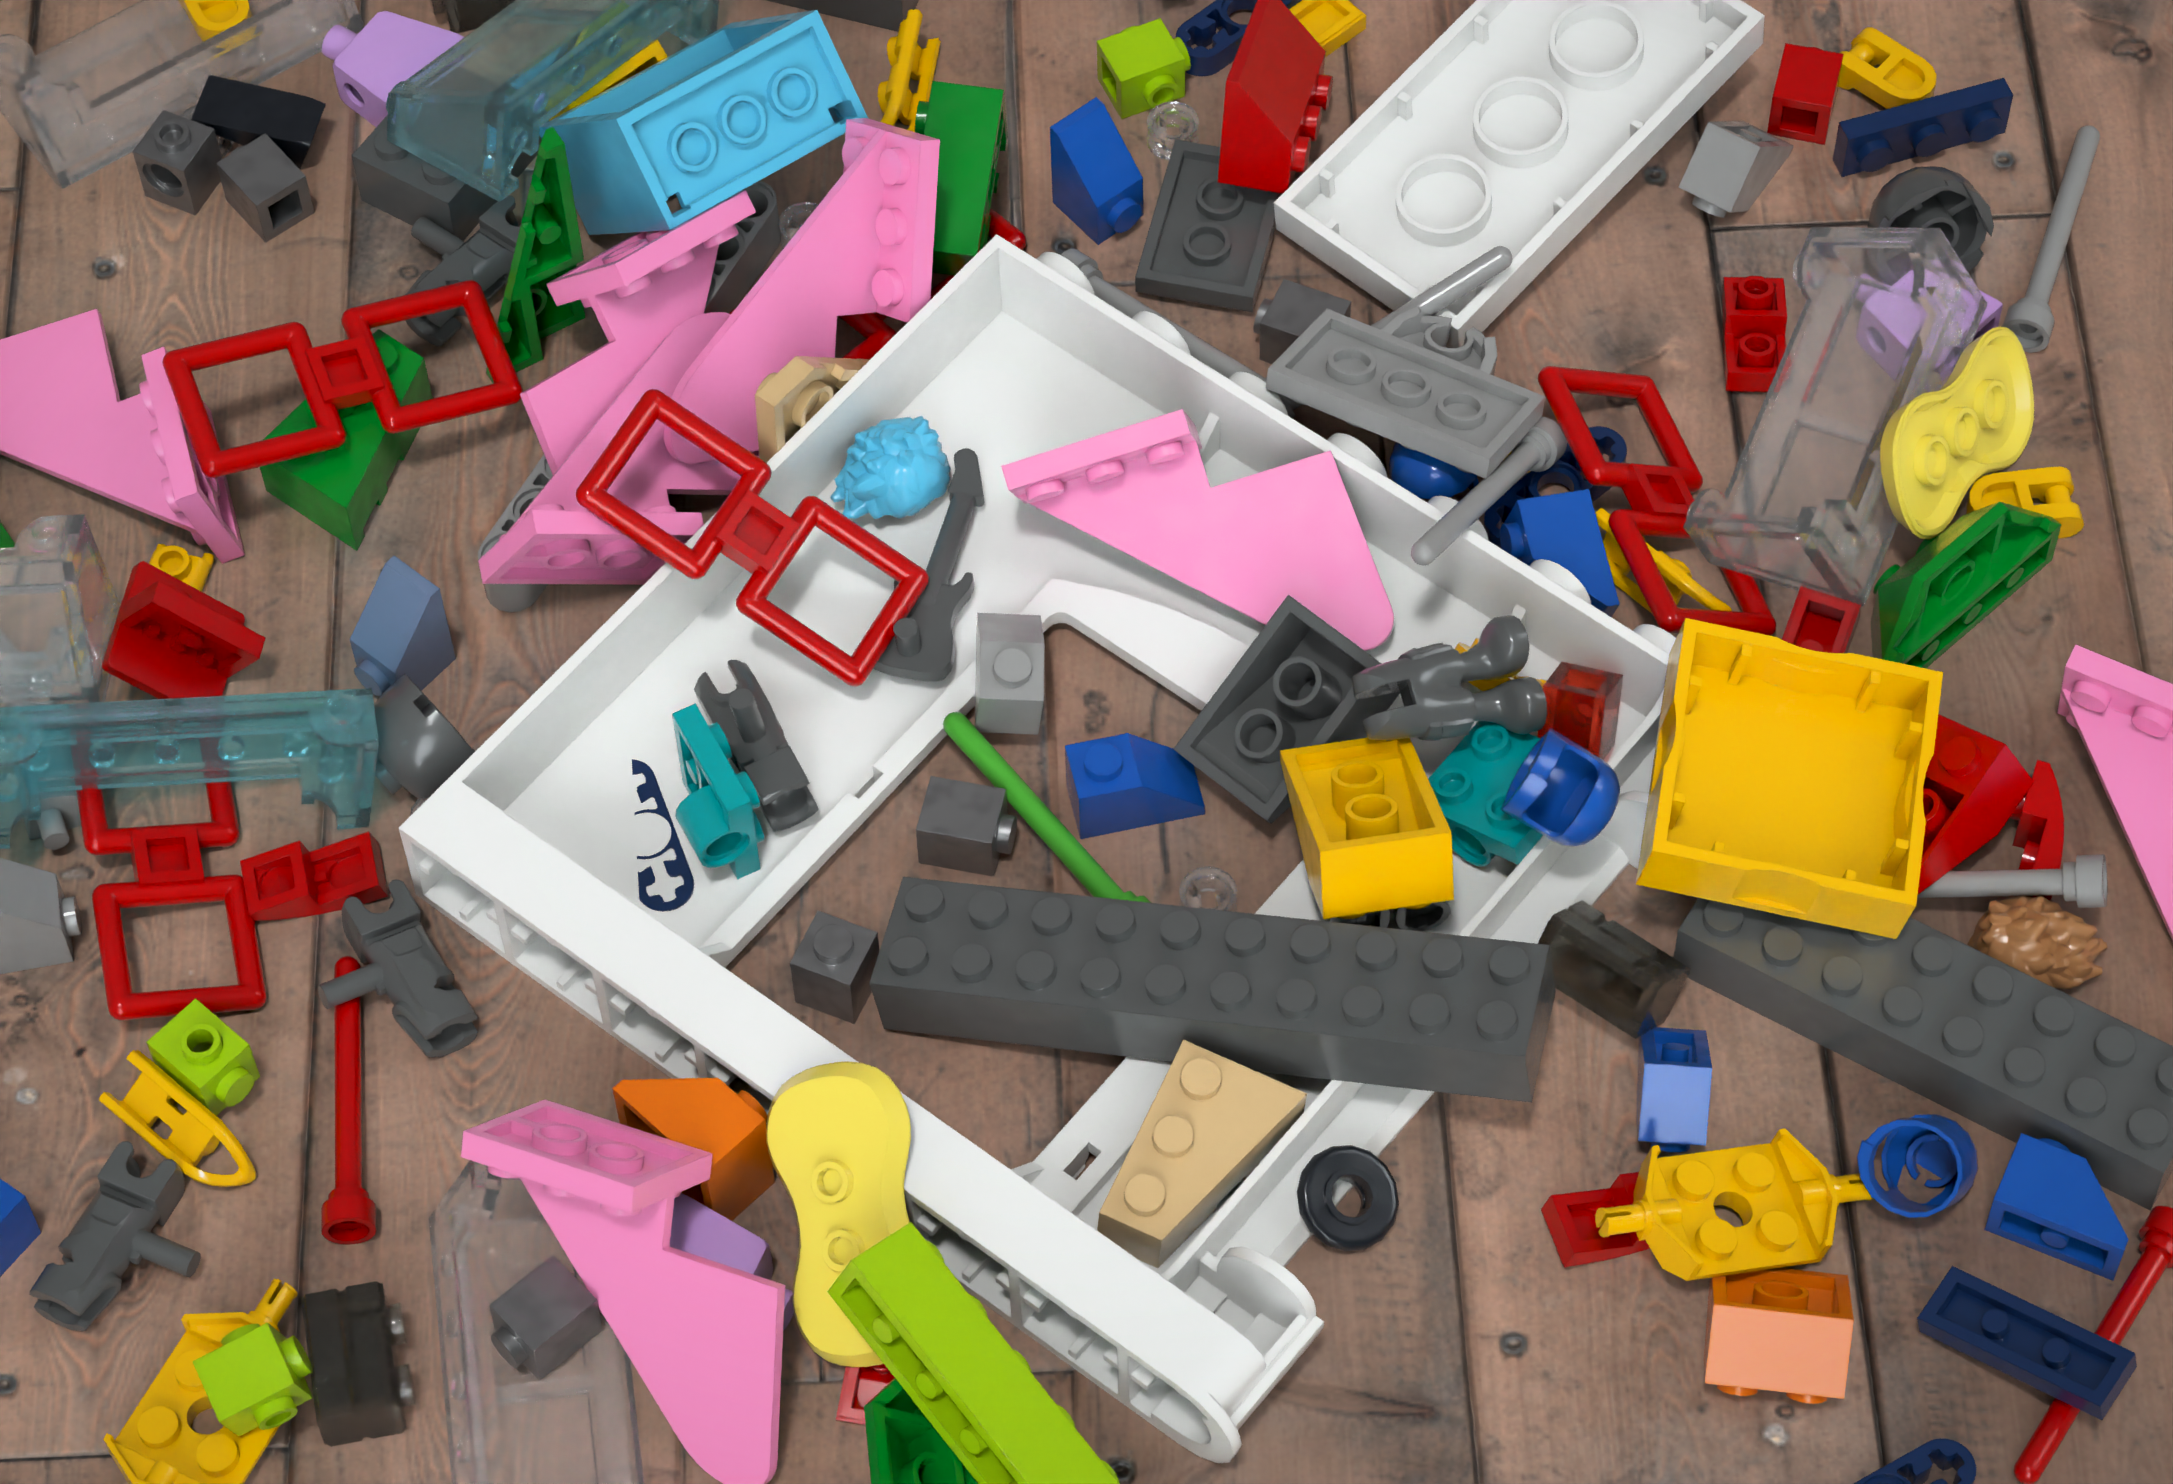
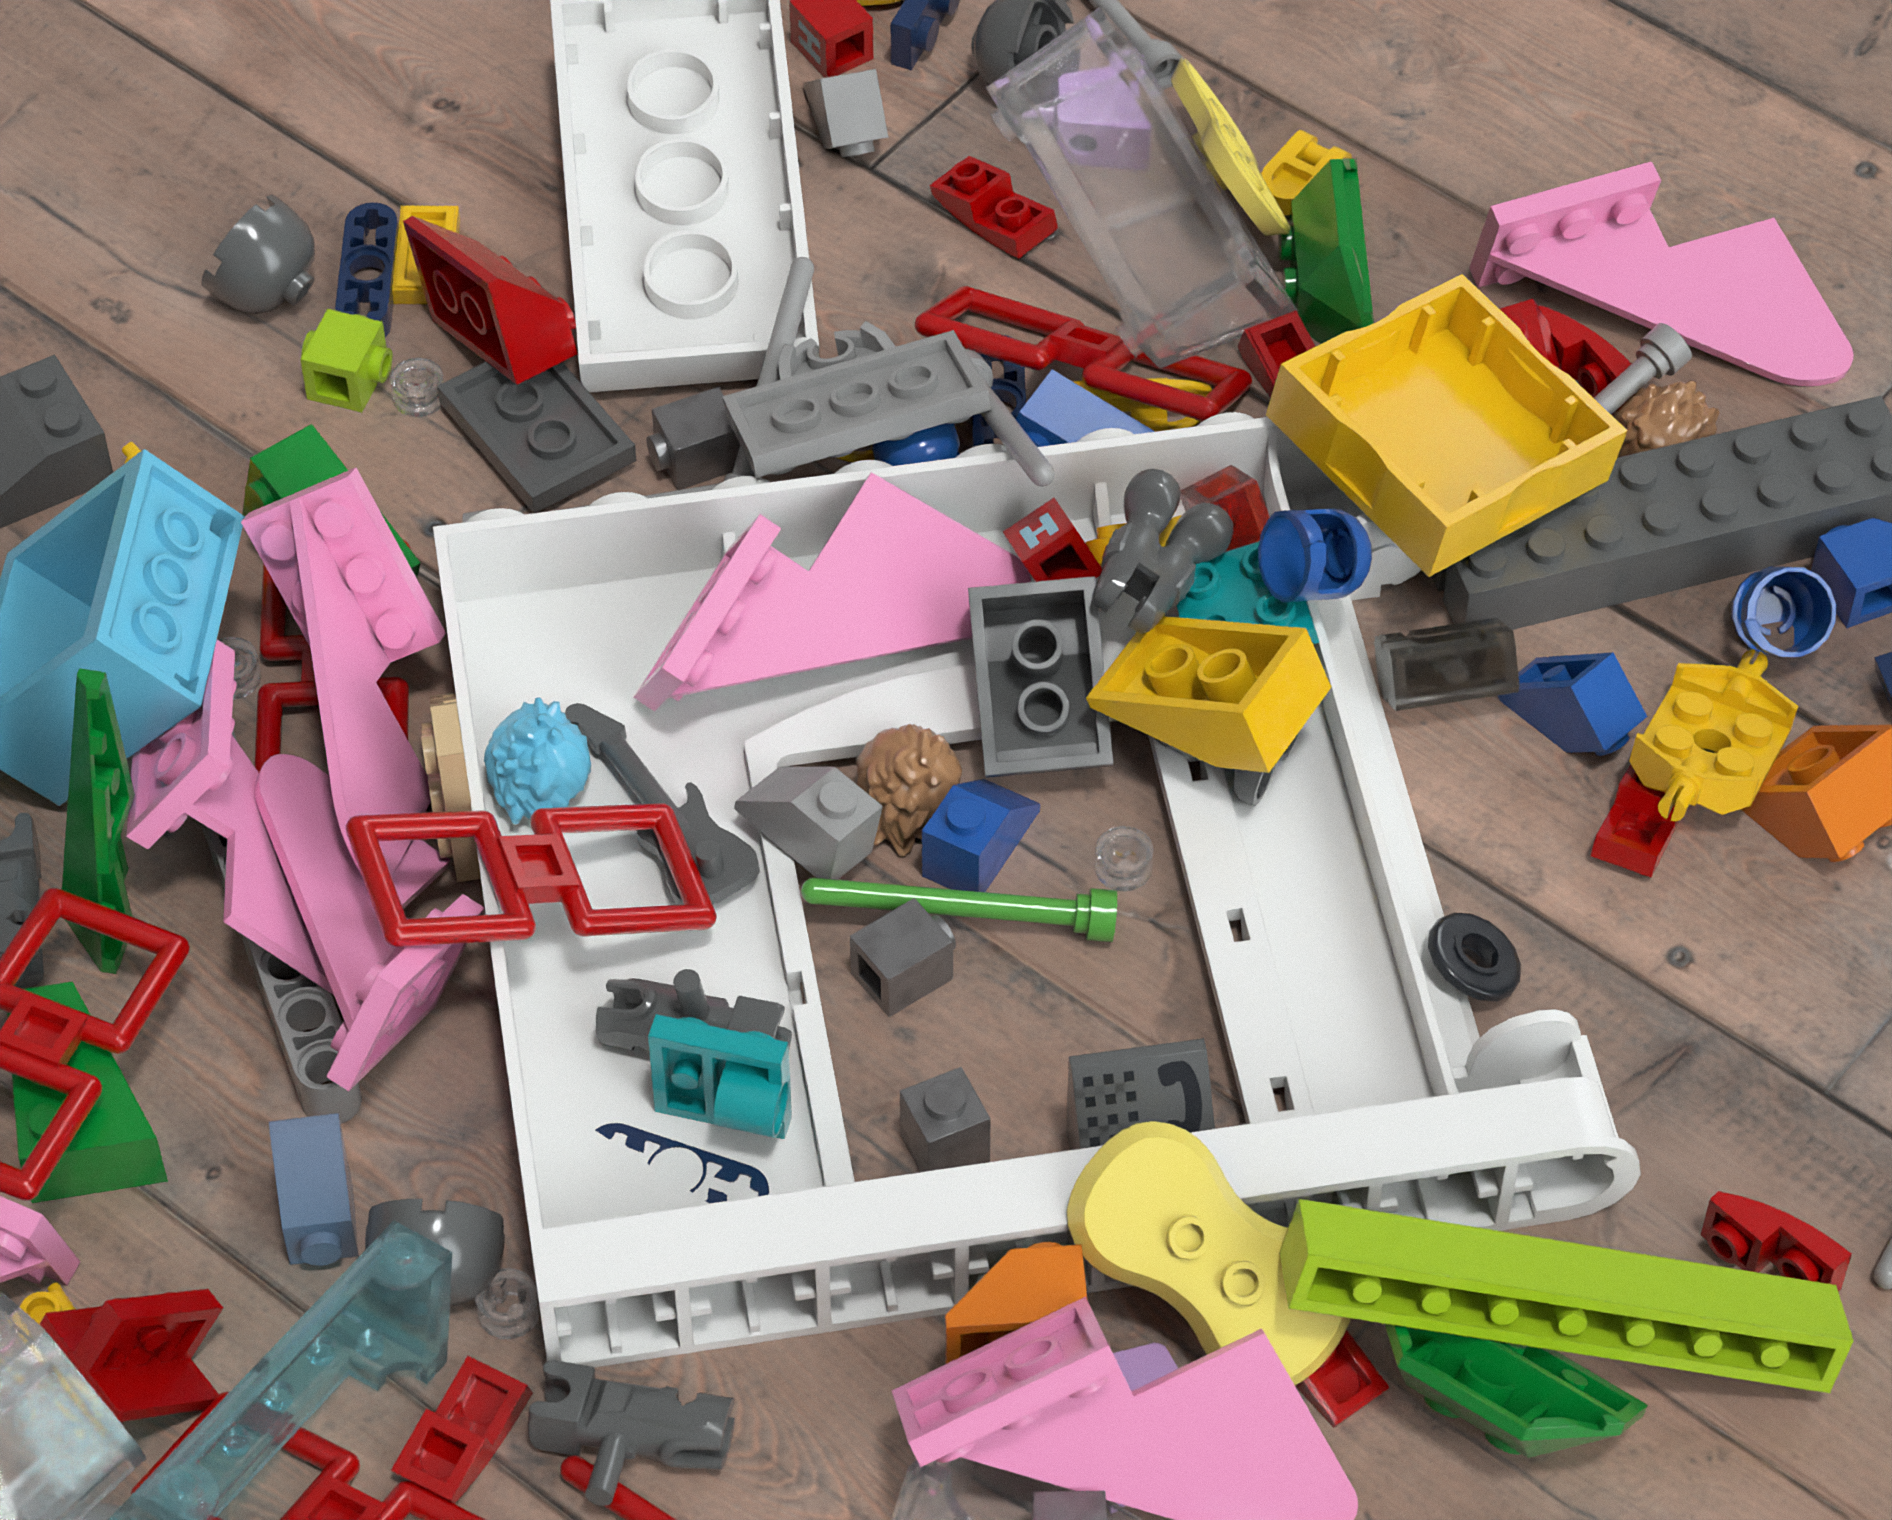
camera: 50 degrees left, 5 degrees down
(960, 1074) = (1138, 1086): none -> dark grey slope
(1094, 173) = (419, 451): blue slope -> none
(1121, 697) = (909, 776): none -> medium nougat hair
(1192, 1149) = (1354, 1004): tan wedge -> none
(1239, 984) = (1239, 889): dark grey brick -> none
(1418, 617) = (1051, 545): none -> red brick

